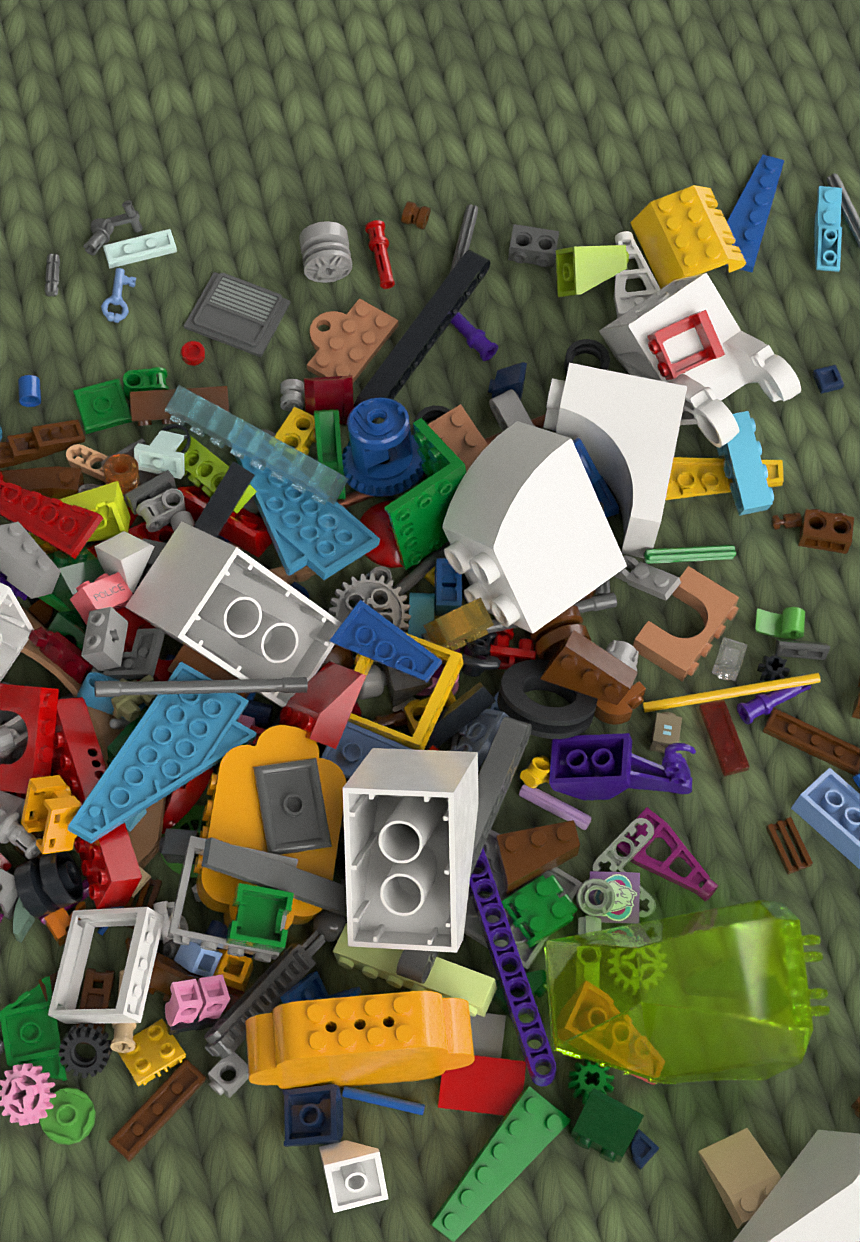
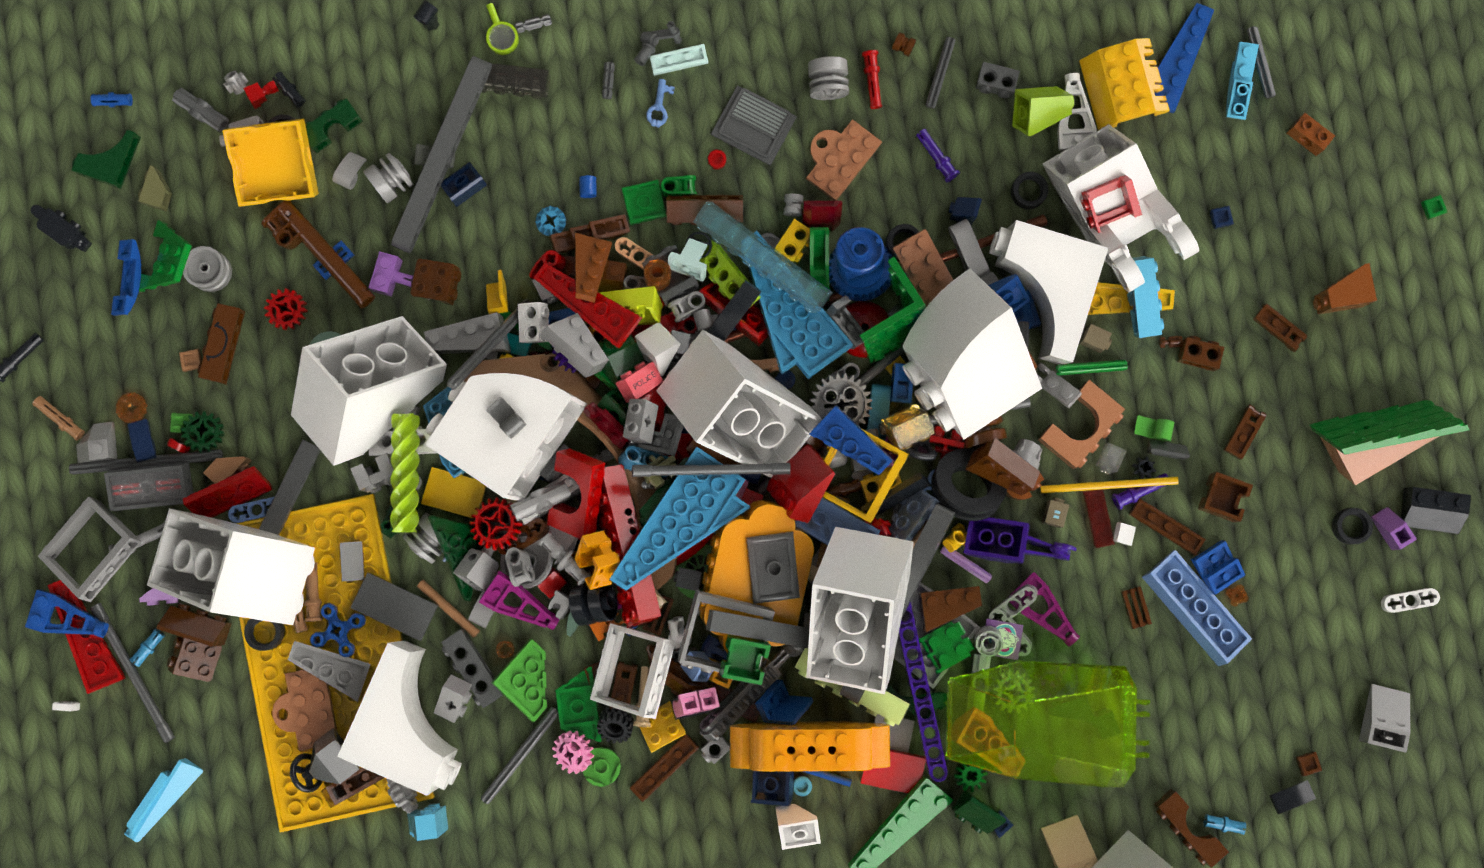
camera: 10 degrees right, 20 degrees up
(33, 468) = (590, 263): none -> dark orange wing
(355, 1119) = (802, 785): none -> medium azure tile
(357, 505) = (846, 321): none -> dark grey bracket
(426, 328) = (901, 158): black beam -> none
(691, 522) = (1096, 338): none -> dark tan brick
(759, 752) = (1124, 533): none -> white tile

